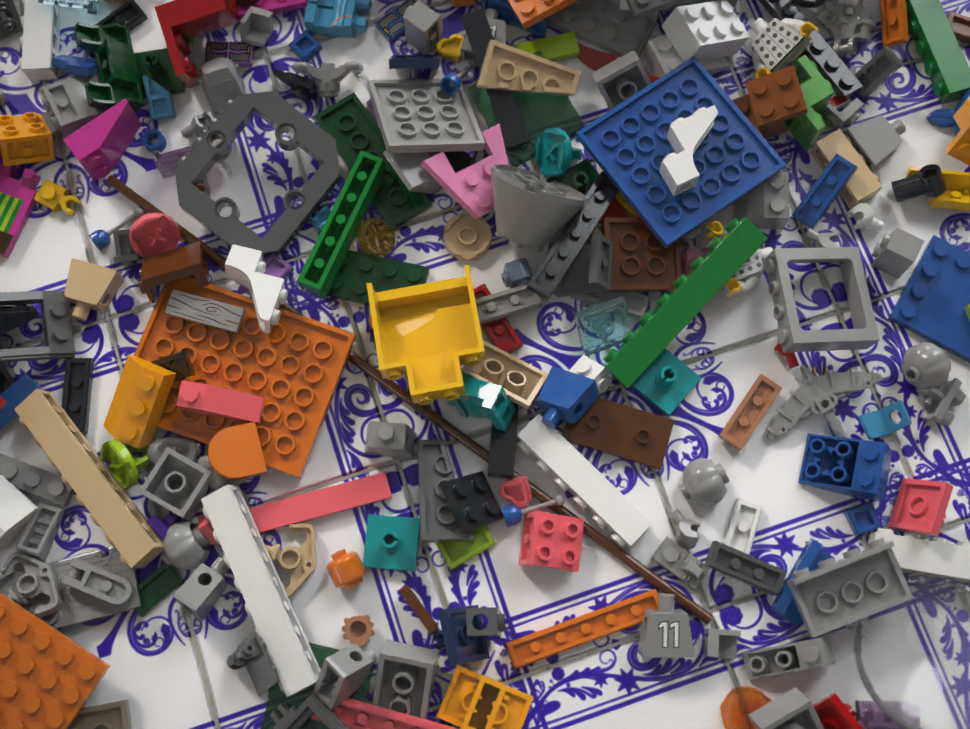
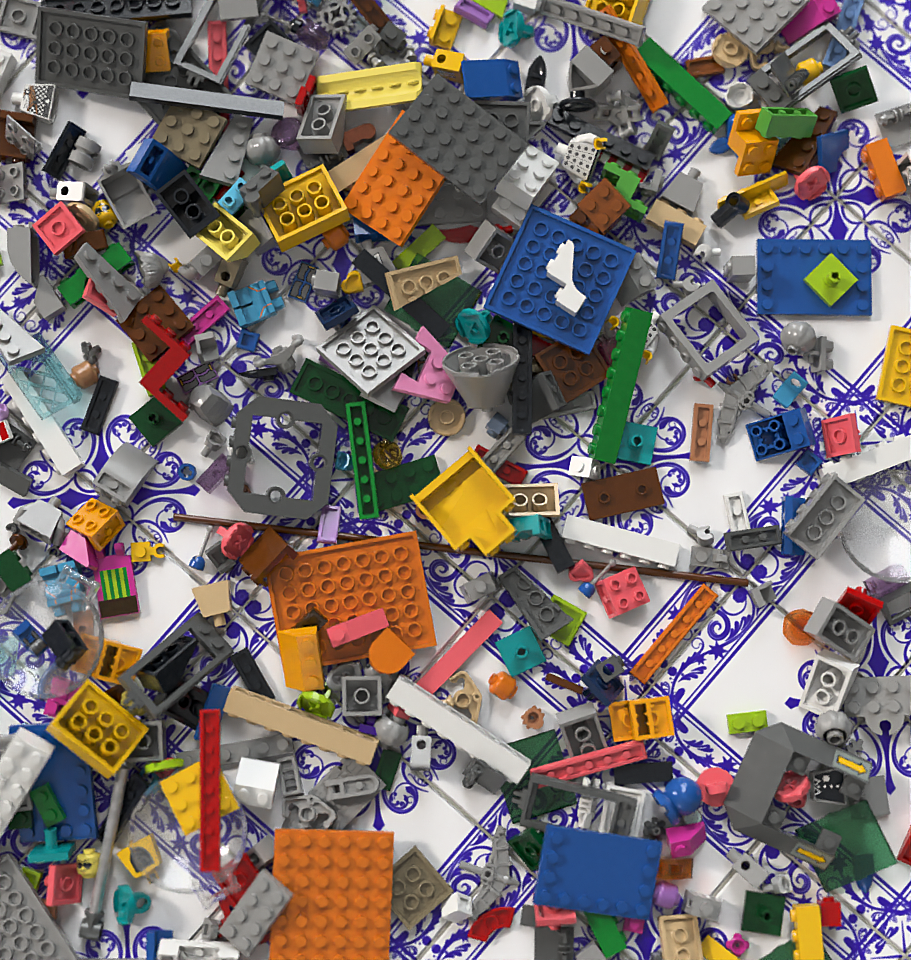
camera: 35 degrees left, 10 degrees up
(76, 65) = (101, 448): blue tile -> none
(104, 139) = (156, 497): dark pink slope -> none
(115, 65) = (129, 436): dark green bracket -> none
(159, 100) = (171, 440): dark azure tile -> none
(205, 311) = (307, 573): light grey tile -> none
(267, 291) = (340, 537): white arch -> none
(343, 674) = (546, 743): light grey torso -> none
(454, 79) = (373, 311): blue hinge -> none
(472, 501) = (558, 596): black plate -> none
(566, 397) = (578, 493): blue torso -> none
(602, 325) = (574, 430): clear light blue tile -> none
(665, 631) = (725, 607): light grey torso -> none
(704, 482) = (697, 497): light grey plant -> none
(788, 658) = (809, 579): light grey slope -> none

